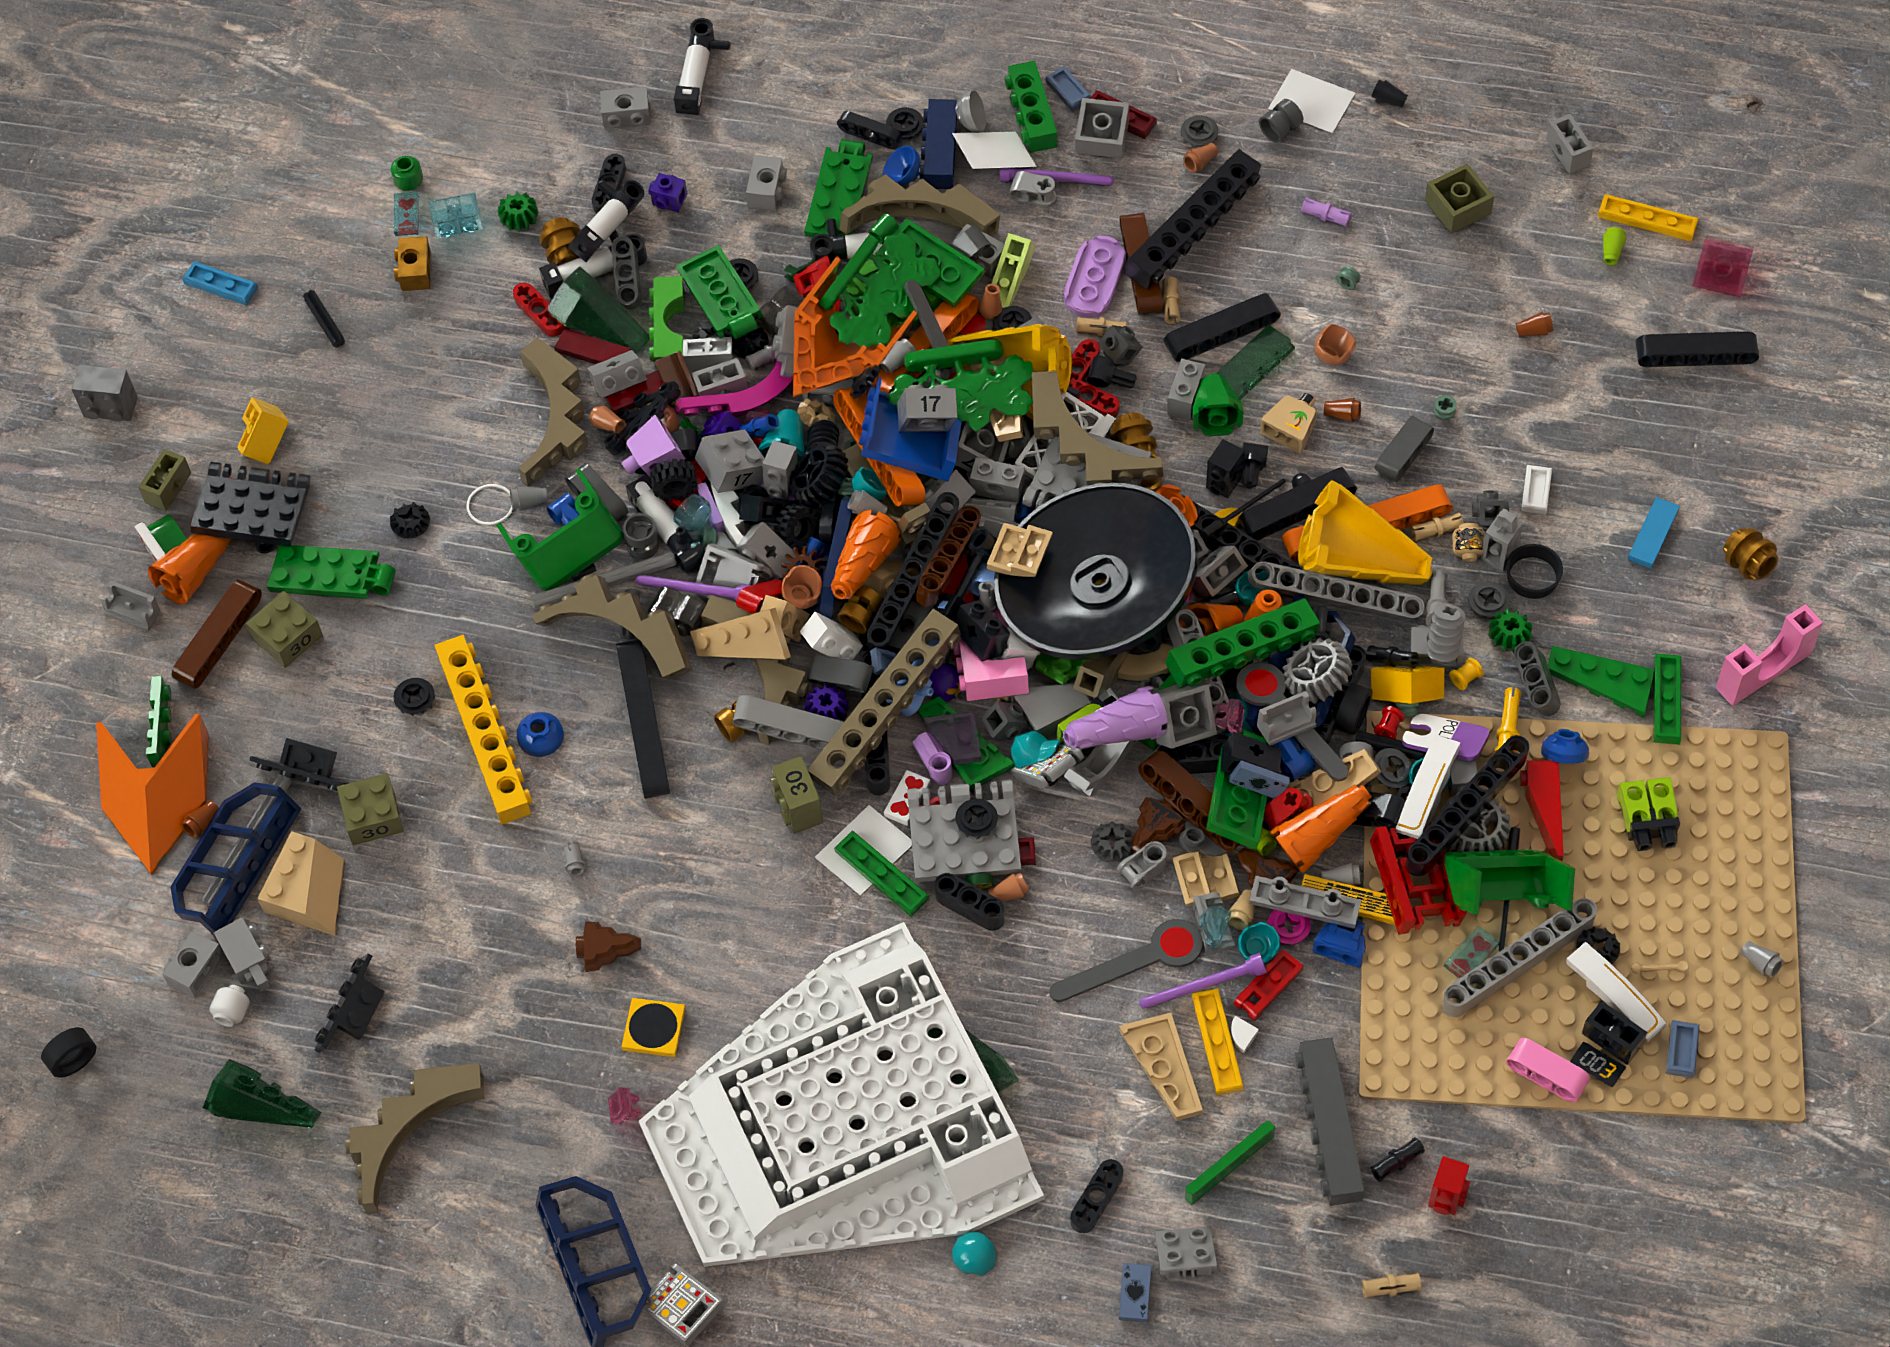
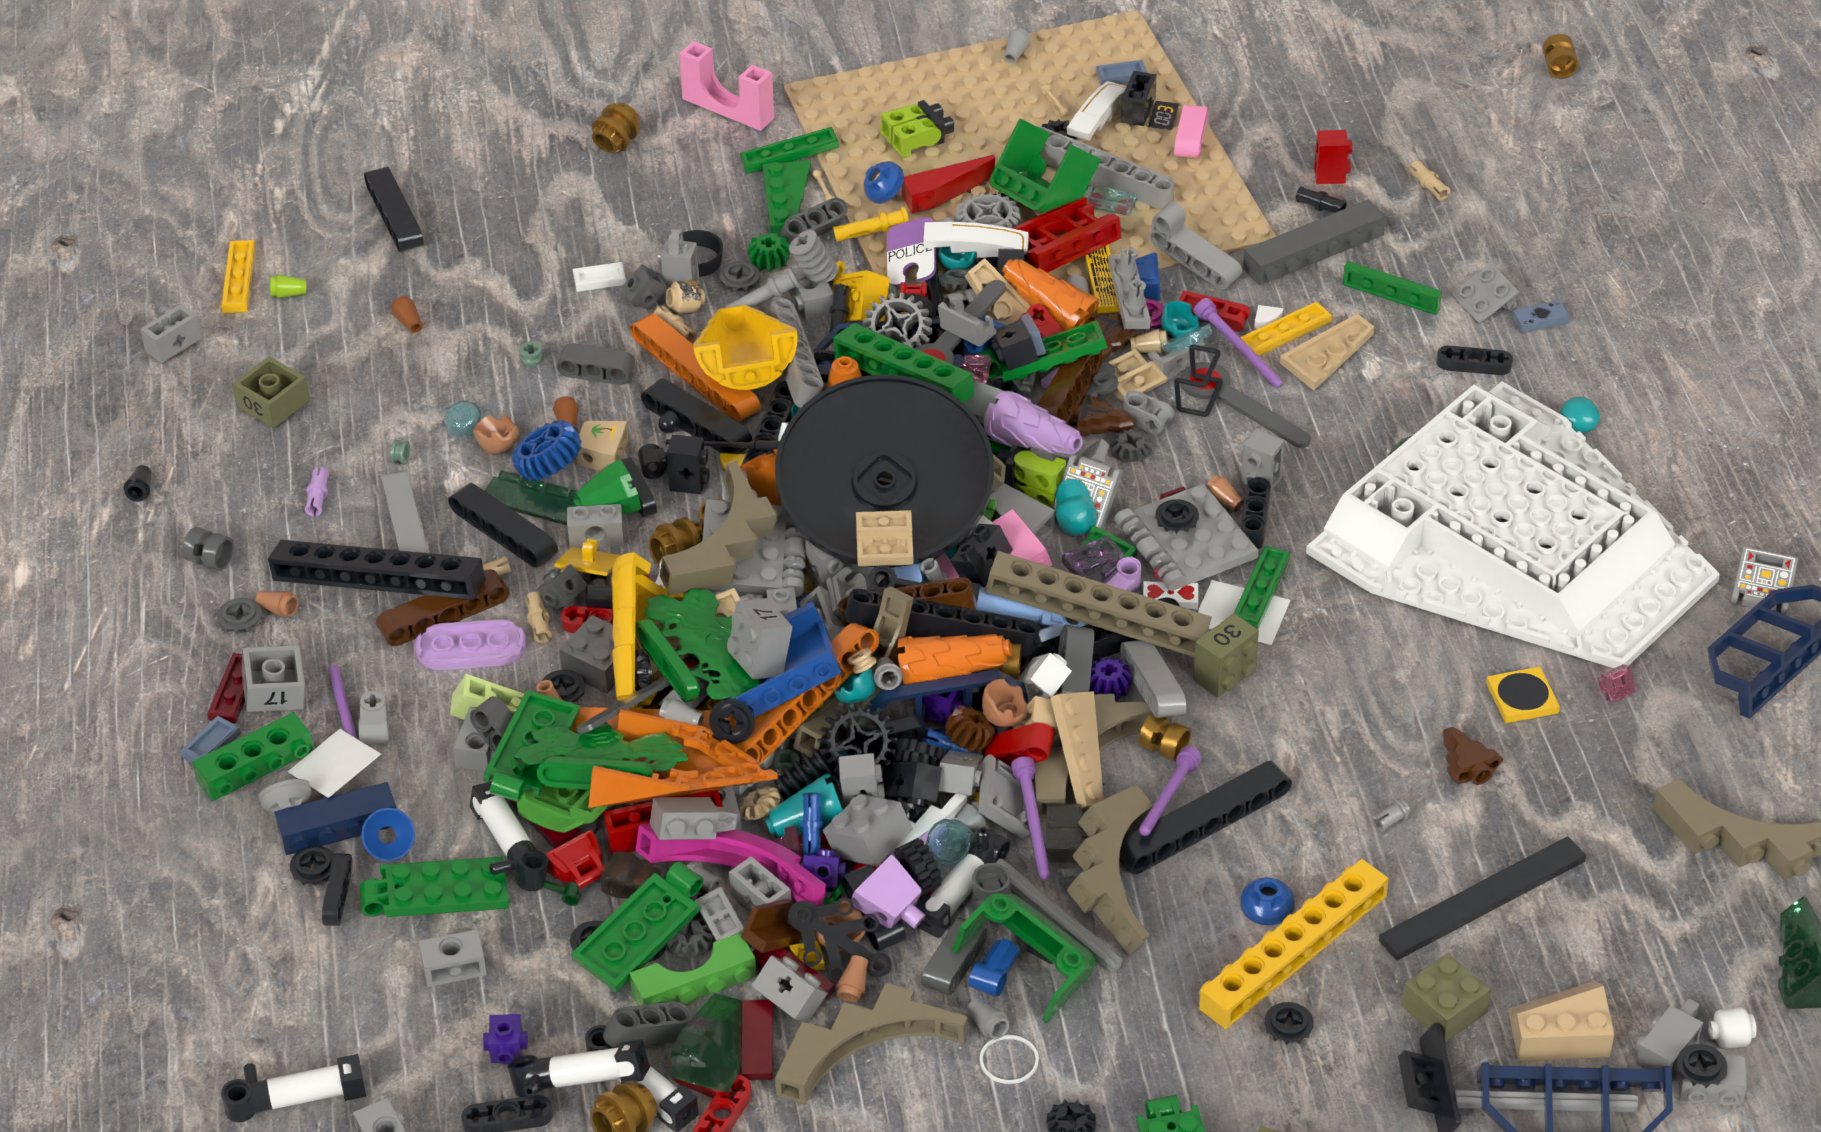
camera: 115 degrees left, 15 degrees down
(188, 934) = (1709, 1057): none -> black gear
(354, 1007) = (1663, 929): black bracket -> none
(457, 892) = (1482, 898): none -> black tile
(707, 729) = (1187, 761): none -> medium lavender piece
(877, 482) = (862, 660): none -> tan bush
(920, 200) = (441, 824): dark tan arch -> none
(981, 880) = (1233, 508): dark green tile -> none
(1004, 720) = (1056, 538): dark grey brick -> none
(1021, 923) = (1262, 458): none -> light grey brick
(1142, 910) = (1206, 378): none -> black piece
(1147, 375) = (588, 559): none -> yellow piece
(1235, 433) = (646, 497): none -> black beam
(1259, 261) = (403, 512): none -> light grey beam
(1284, 368) = (546, 450): none -> blue gear
(1318, 100) = (158, 547): white sticker -> none
(1354, 993) = (1191, 249): none -> light grey beam
(1374, 336) = (462, 418): none -> clear light blue hair
(1463, 815) = (984, 206): black beam -> none
(1582, 715) = (817, 175): none -> tan hinge
(1653, 532) = (613, 197): dark azure tile -> none
(1723, 266) = (284, 210): clear pink slope -> none

